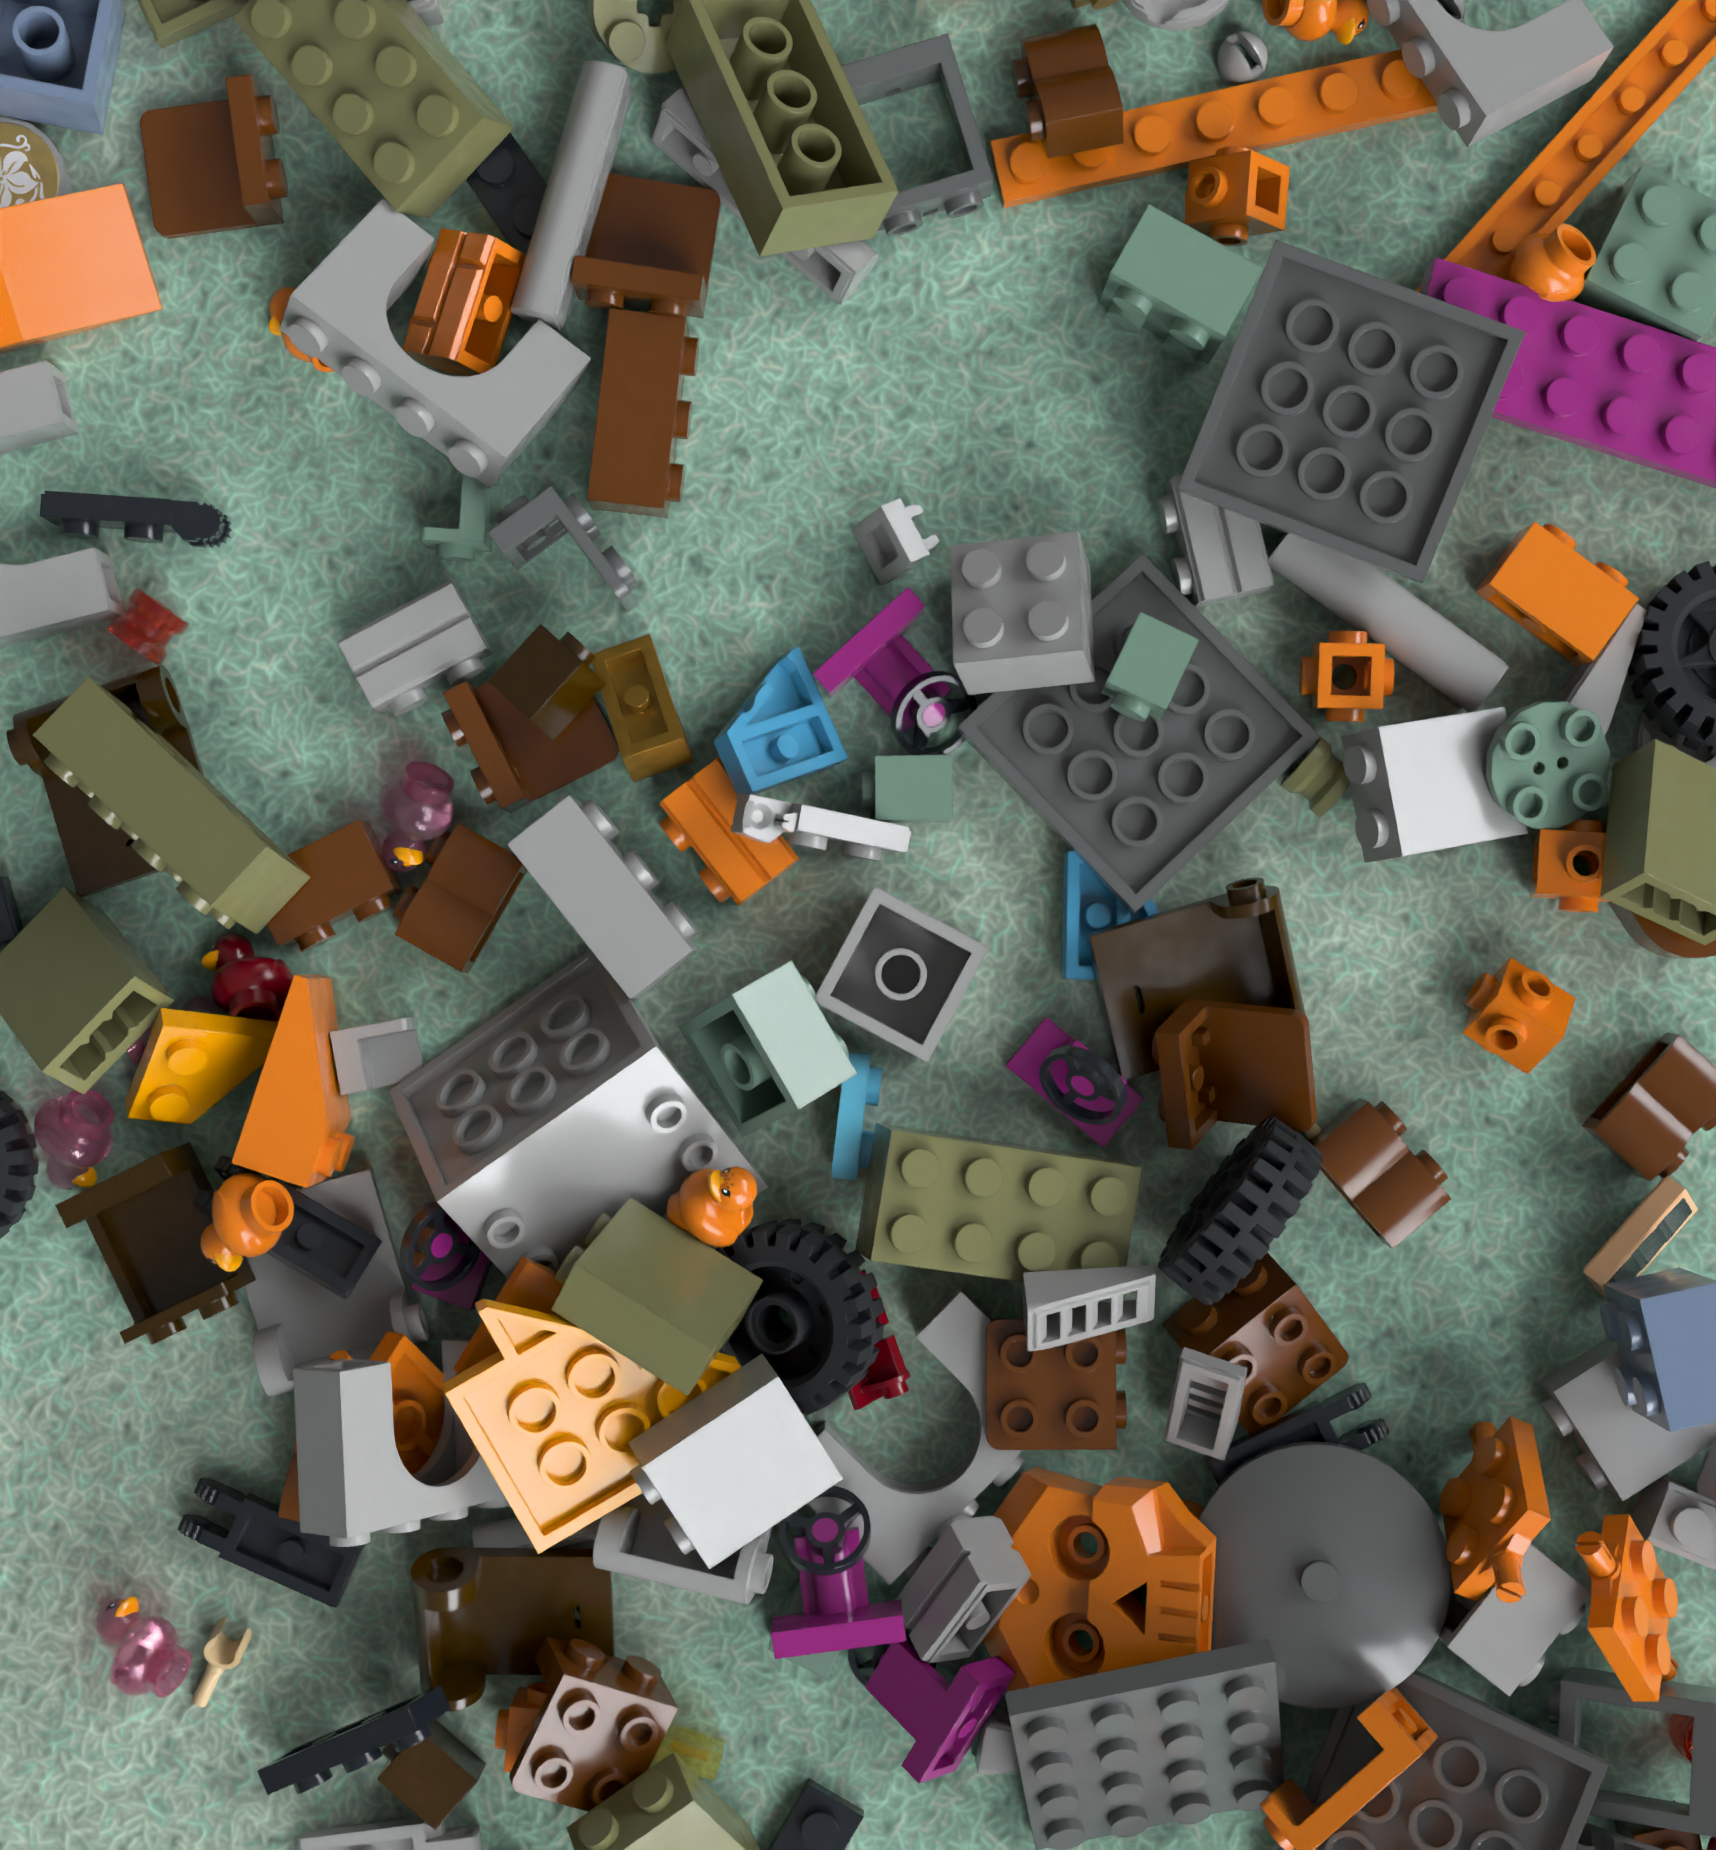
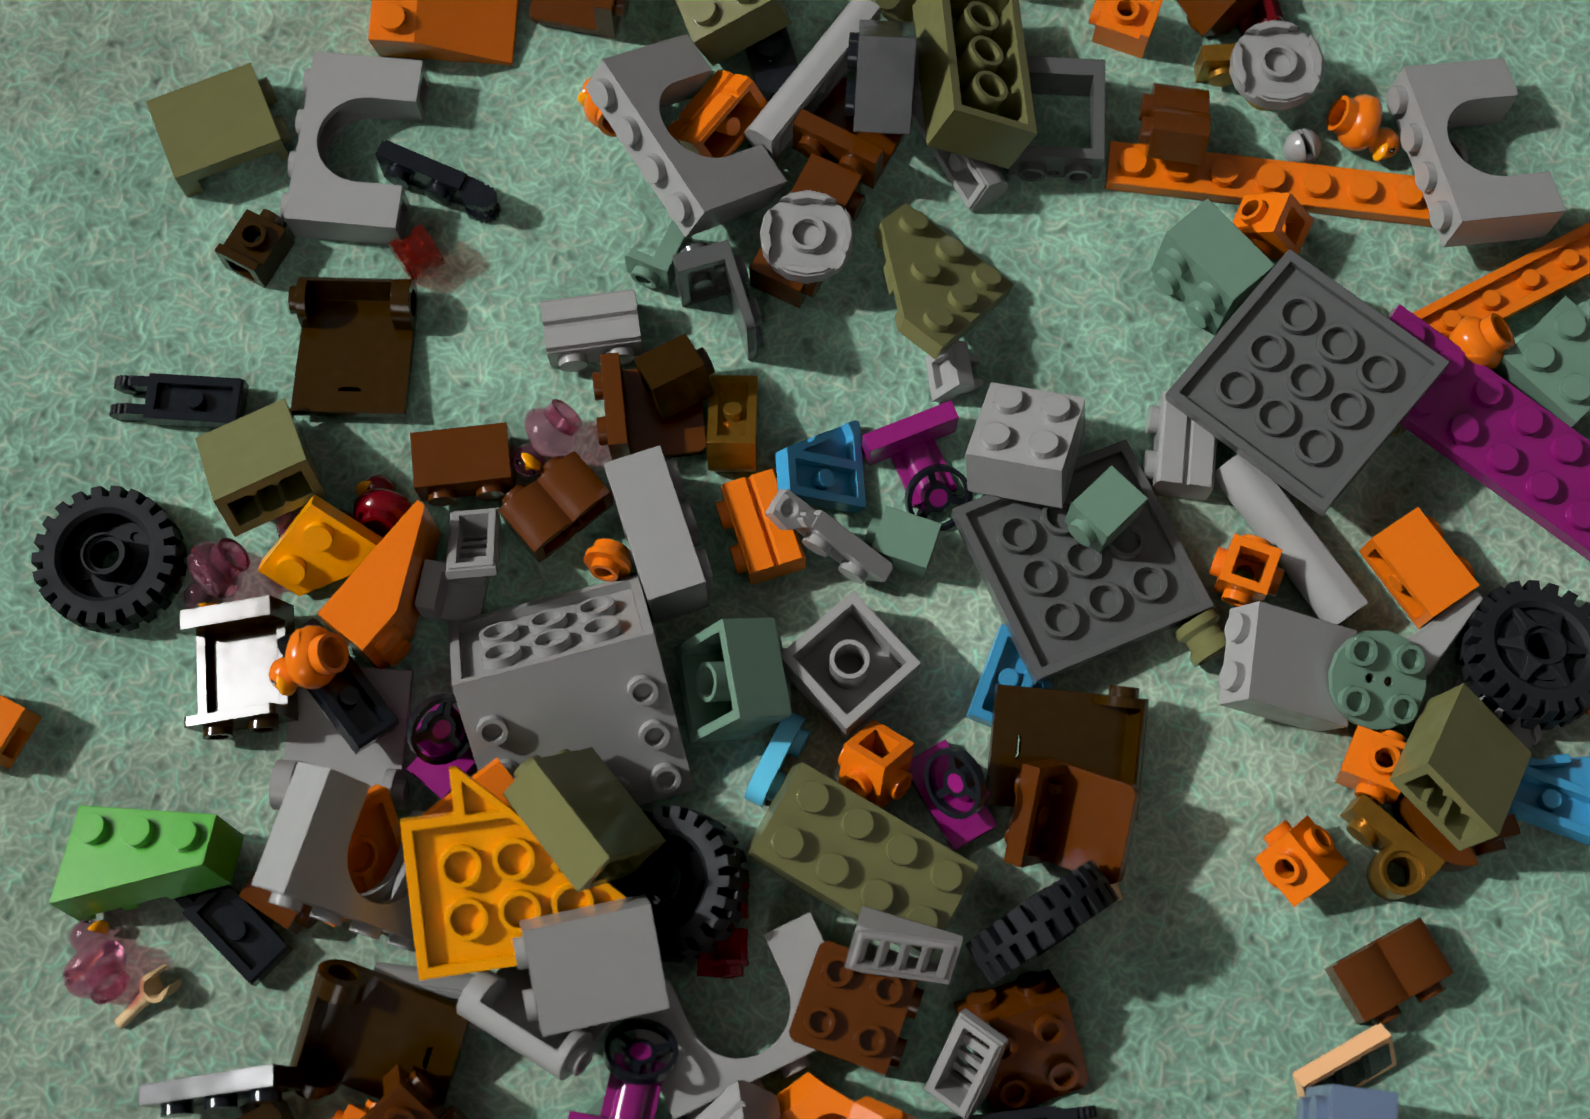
camera: 20 degrees right, 15 degrees down
(139, 1517) = (139, 856): none -> bright green wedge
(168, 809) = (379, 364): olive brick -> none
(369, 963) = (474, 543): none -> light grey slope
(553, 943) = (608, 560): none -> orange plate
(646, 432) = (807, 237): none -> light grey tile
(665, 177) = (884, 78): none -> black brick
(714, 1205) = (652, 774): orange animal -> none
(830, 428) = (935, 281): none -> olive plate
(976, 1087) = (876, 764): none -> orange brick
(1379, 1172) = (1156, 942): reddish brown brick -> none
(1590, 939) = (1375, 826): none -> pearl gold plate

